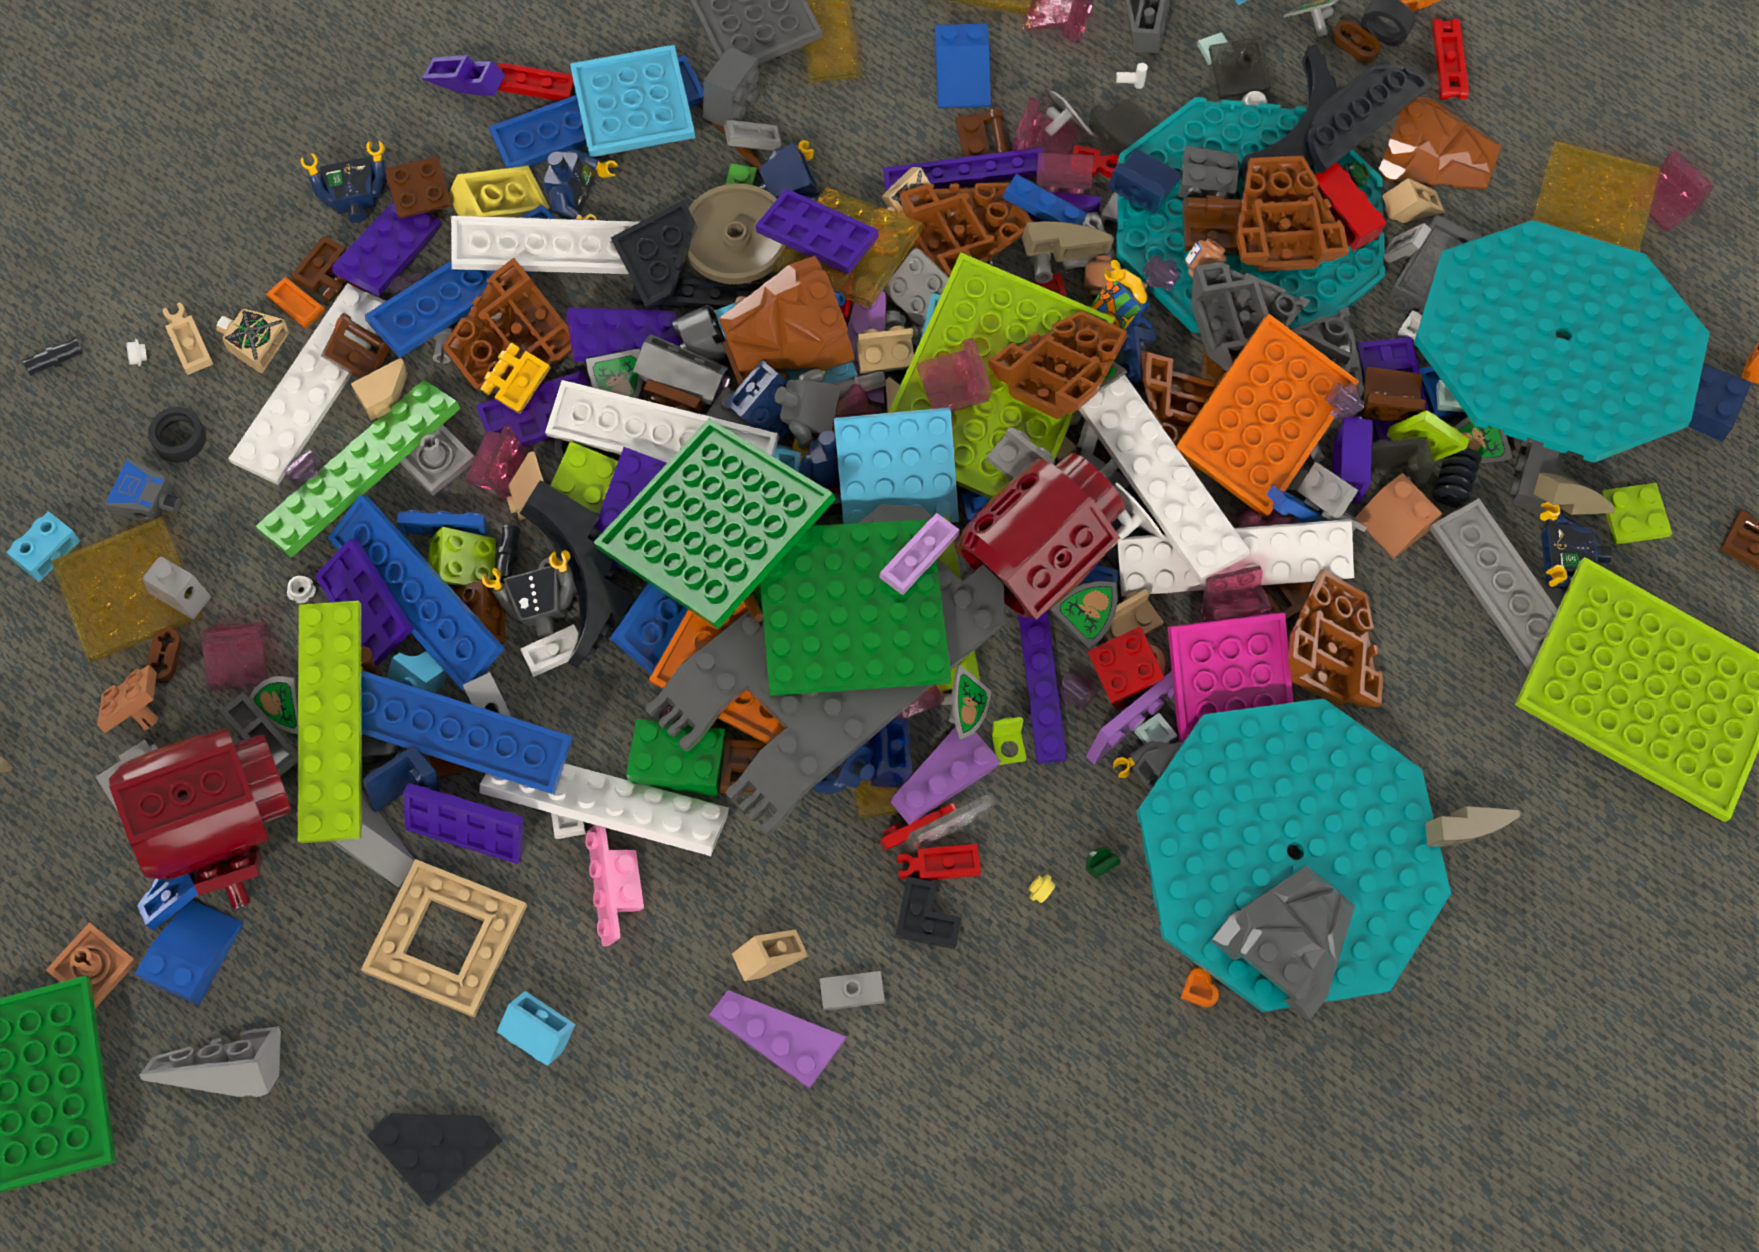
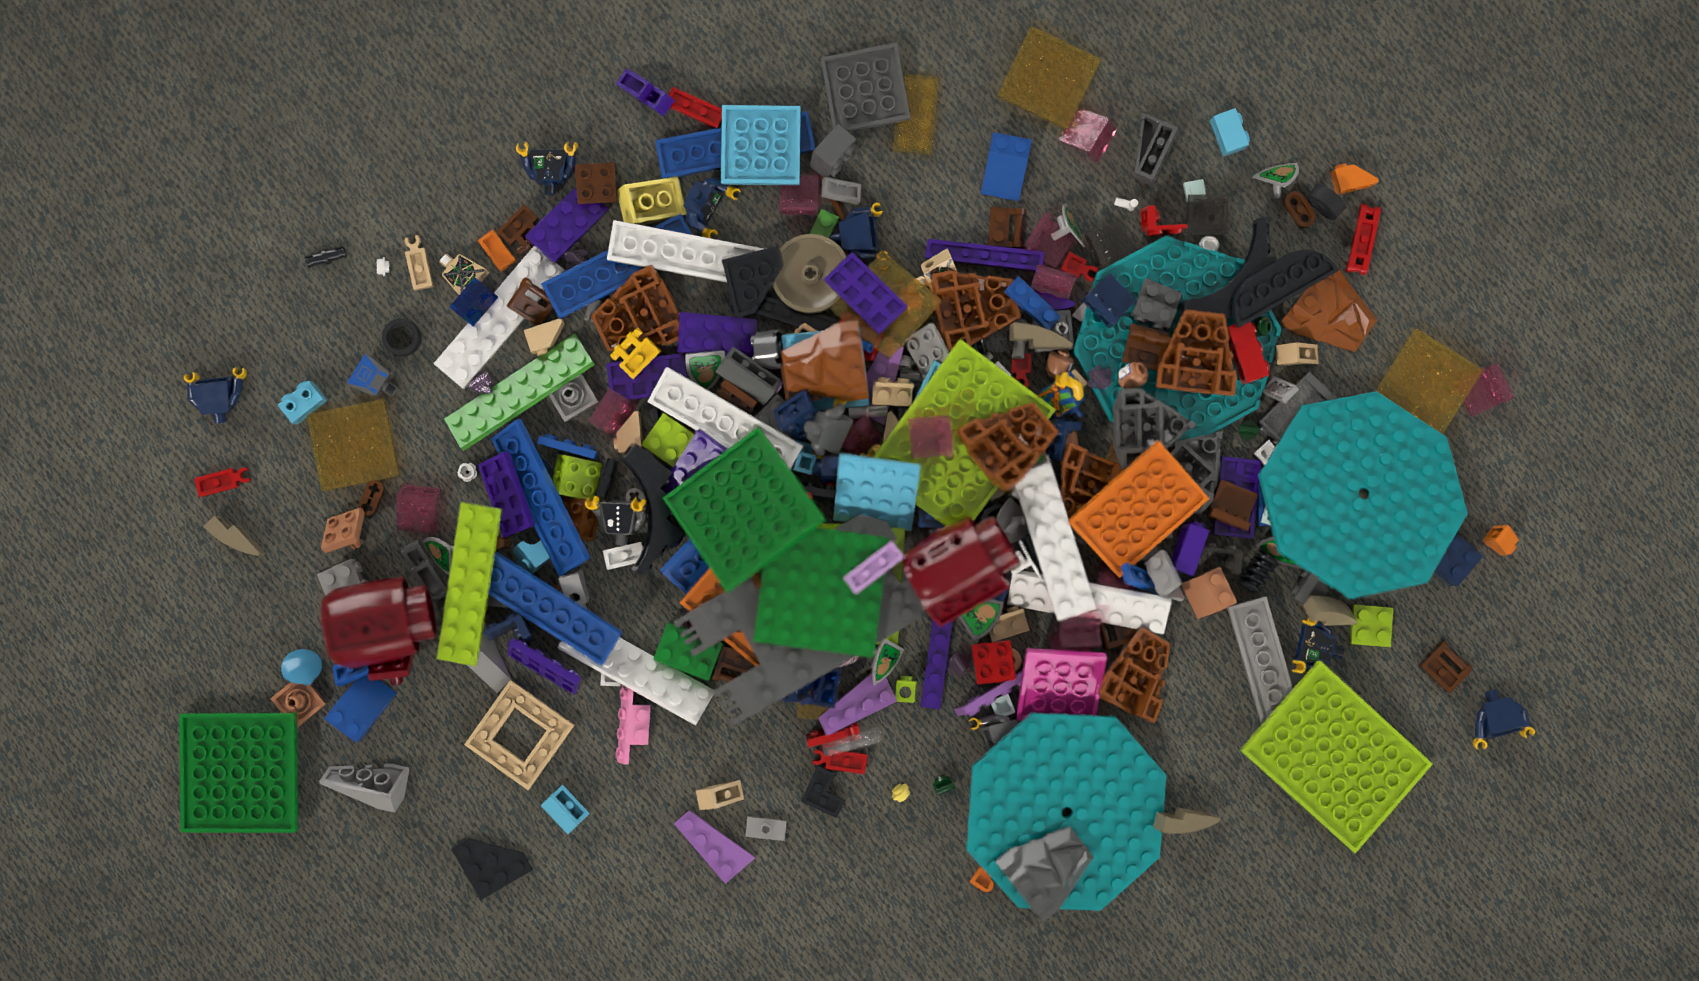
camera: 20 degrees right, 20 degrees up
(89, 911) = (301, 666): none -> dark azure dish
(169, 583) = (383, 459): light grey torso -> none
(274, 361) = (473, 302): none -> clear blue brick
(699, 156) = (801, 198): none -> clear pink bracket
(1016, 454) = (961, 502): light grey bracket -> none
(1177, 91) = (1150, 216): none -> red bracket
(1344, 400) = (1193, 513): piece -> none
(1381, 306) = (1248, 429): none -> dark green plate
(1441, 437) = (1246, 544): lime plate -> none

